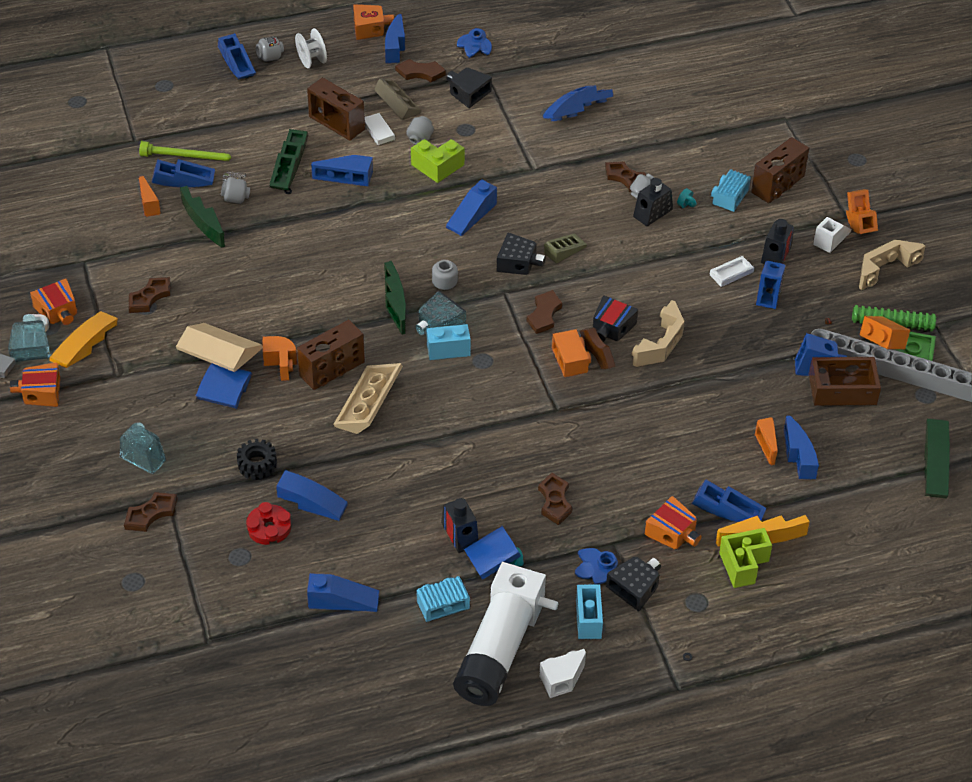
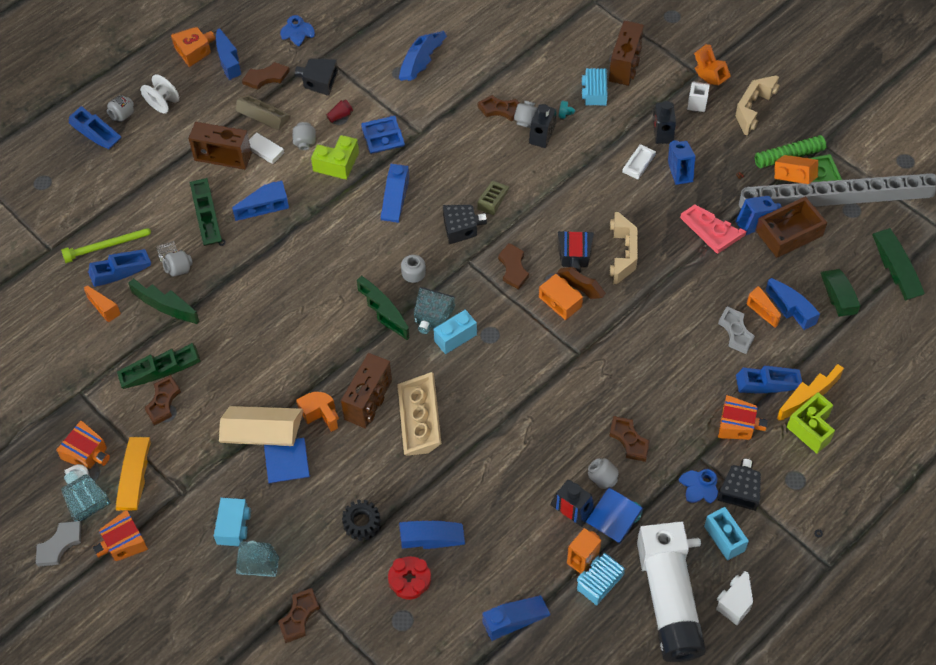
camera: 25 degrees left, 10 degrees up
(142, 408) = (231, 521): none -> medium azure brick
(158, 266) = (158, 367): none -> dark green slope
(439, 562) = (583, 550): none -> orange brick
(468, 123) = (340, 111): none -> dark red cone
(495, 157) = (382, 134): none -> blue slope
(506, 513) = (603, 473): none -> light grey head
(726, 458) = (739, 336): none -> light grey tile
(763, 355) = (710, 229): none -> coral wing
(857, 459) = (840, 292): none -> dark green slope

